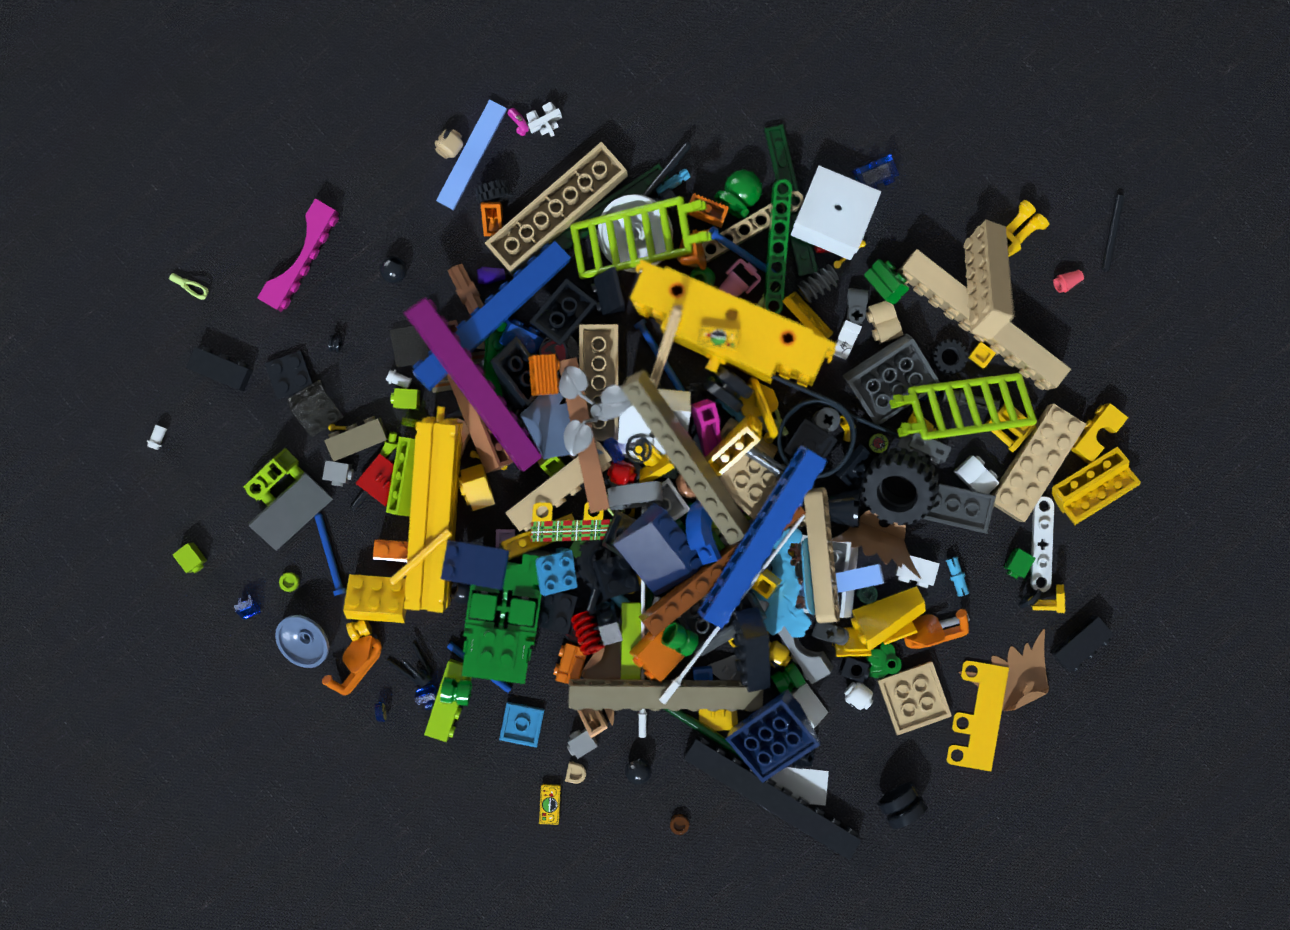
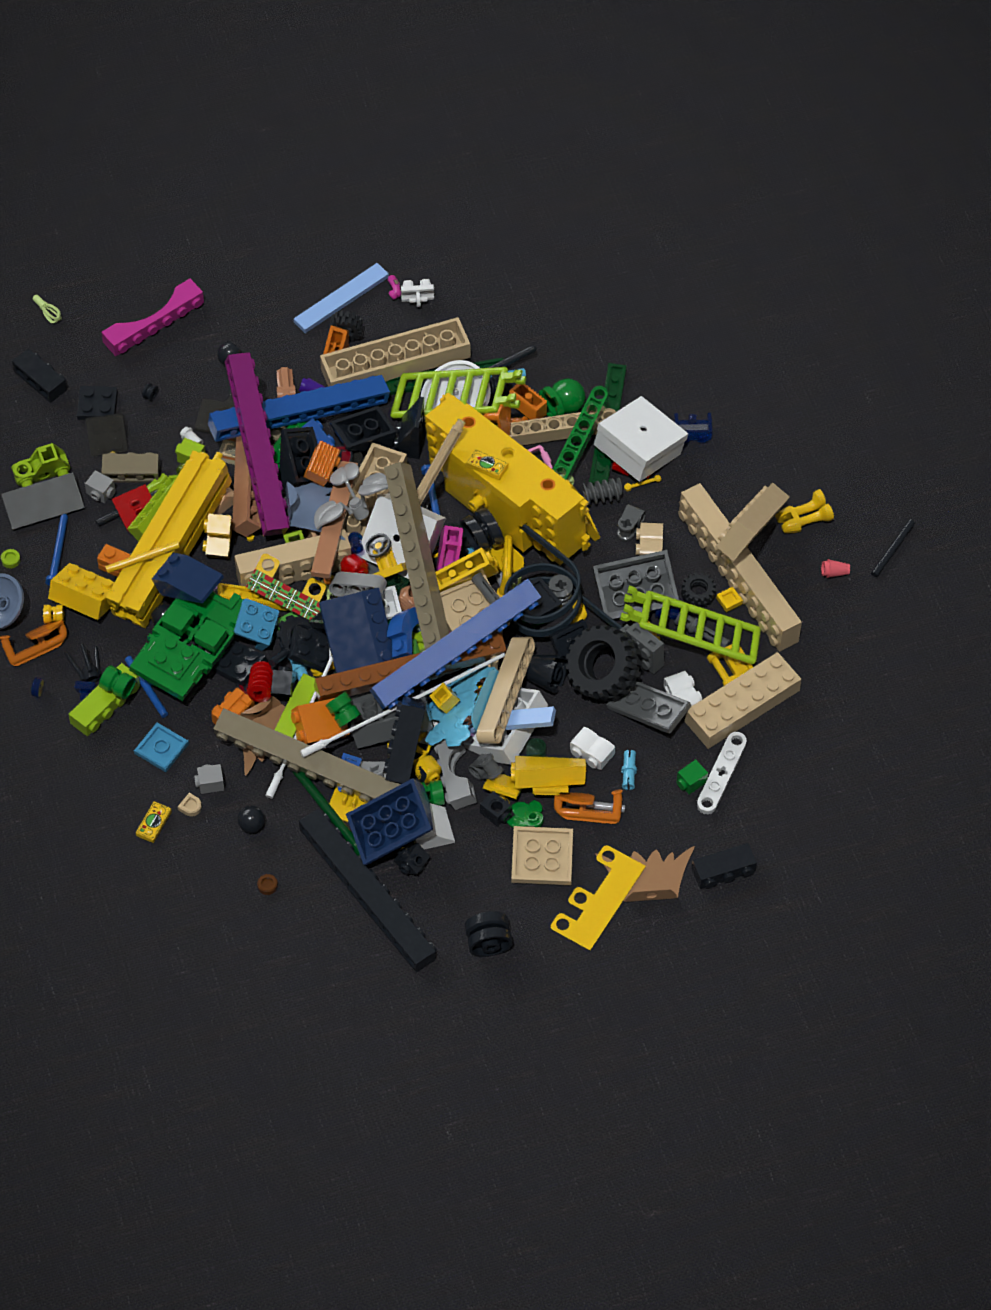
camera: 20 degrees right, 30 degrees down
(449, 143) = (325, 281): tan head -> none
(593, 721) = (230, 765): light nougat slope -> none
(738, 250) = (540, 436): blue bar -> none
(804, 783) = (411, 897): white sticker -> none
(846, 339) = (609, 543): white leg -> none
(858, 696) = (489, 831): white head -> none
(874, 539) = (564, 700): medium nougat piece -> none
(887, 281) = (665, 506): green brick -> none
(1033, 600) = (715, 815): yellow piece -> none
(1095, 486) = (789, 734): yellow brick -> none
(1106, 417) = (824, 688): yellow arch -> none

